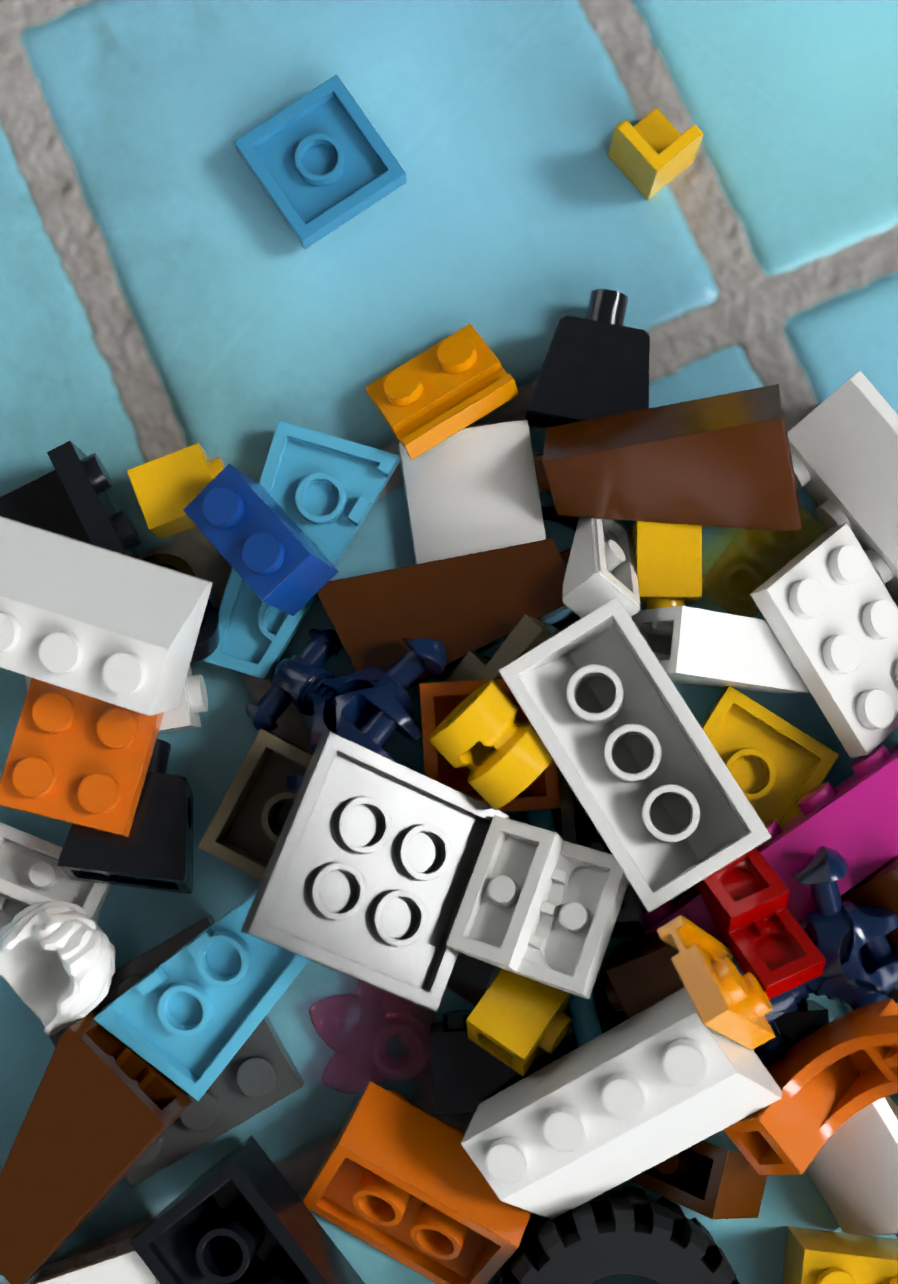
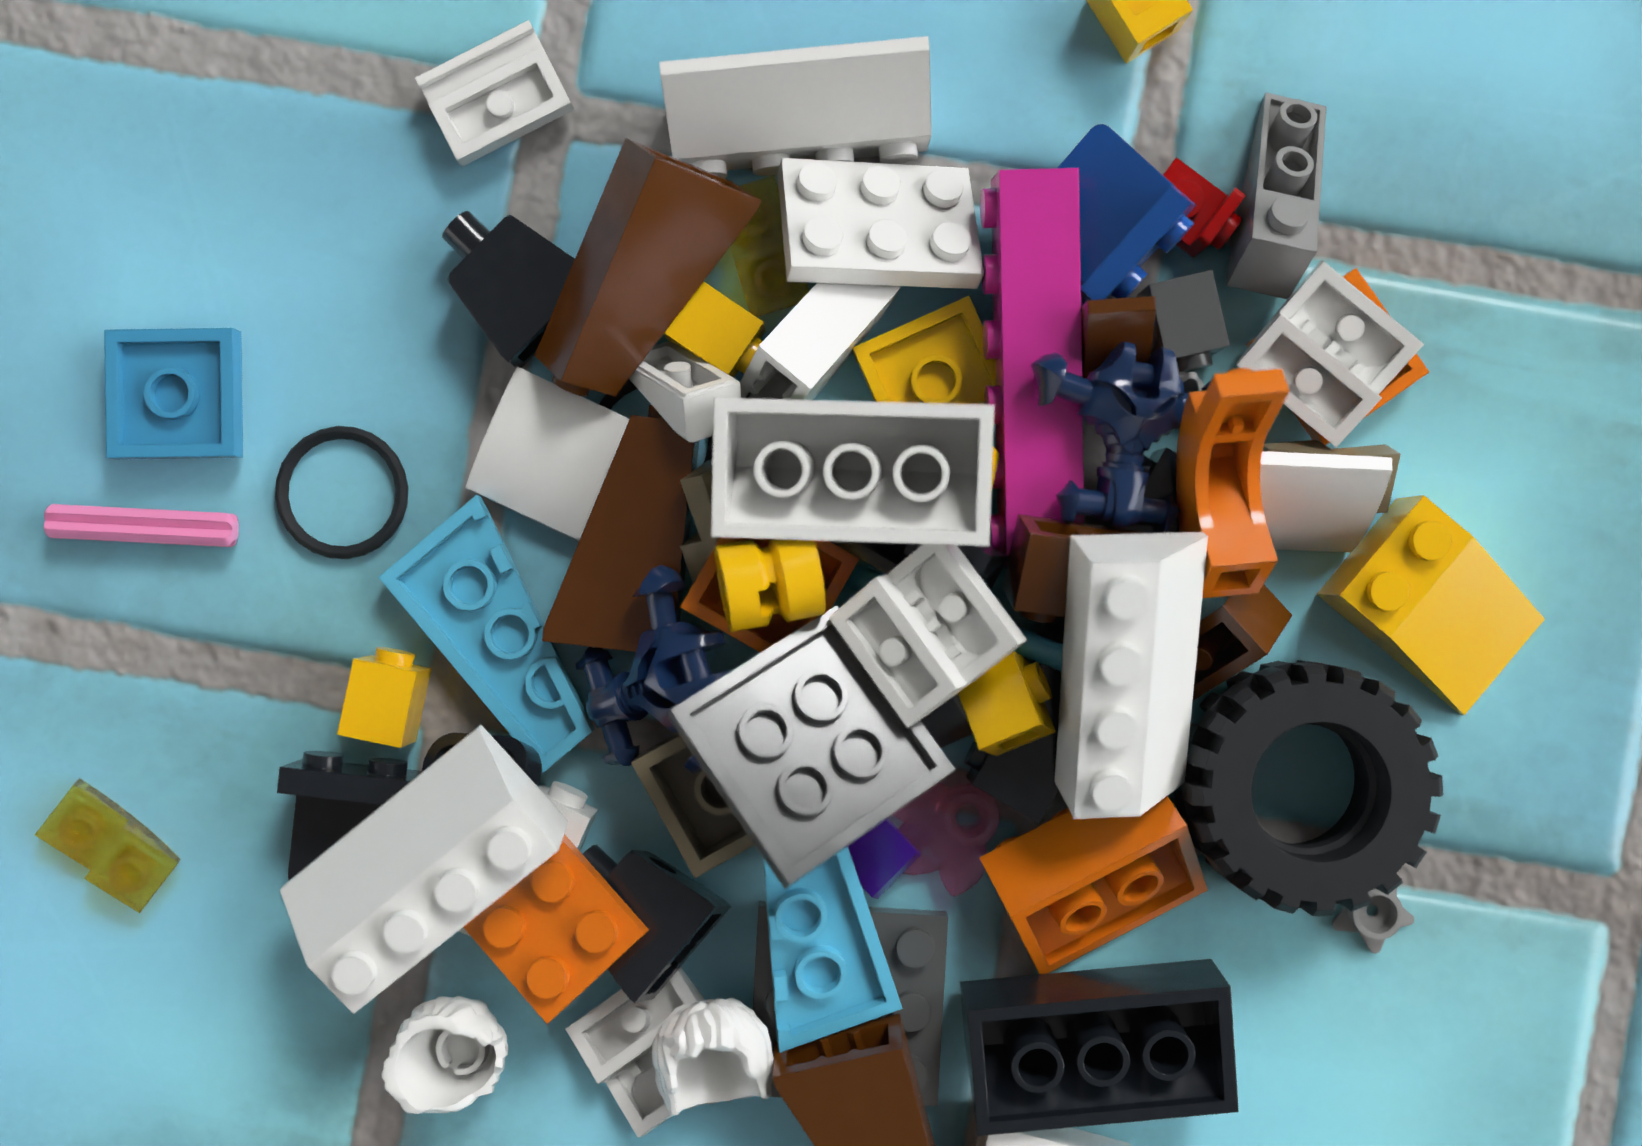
camera: 60 degrees left, 5 degrees up
(196, 205) = (141, 525): none -> bright pink axle
(260, 540) = (471, 661): blue brick -> none
(296, 299) = (282, 492): none -> black tyre
(316, 996) = (882, 857): none -> dark purple tile
(441, 391) = (444, 422): light orange plate -> none
(653, 151) = (354, 101): yellow panel -> none
(721, 994) = (1083, 532): light orange plate -> none
(737, 258) = (494, 93): none -> white plate
(758, 928) = (1060, 461): red slope -> none

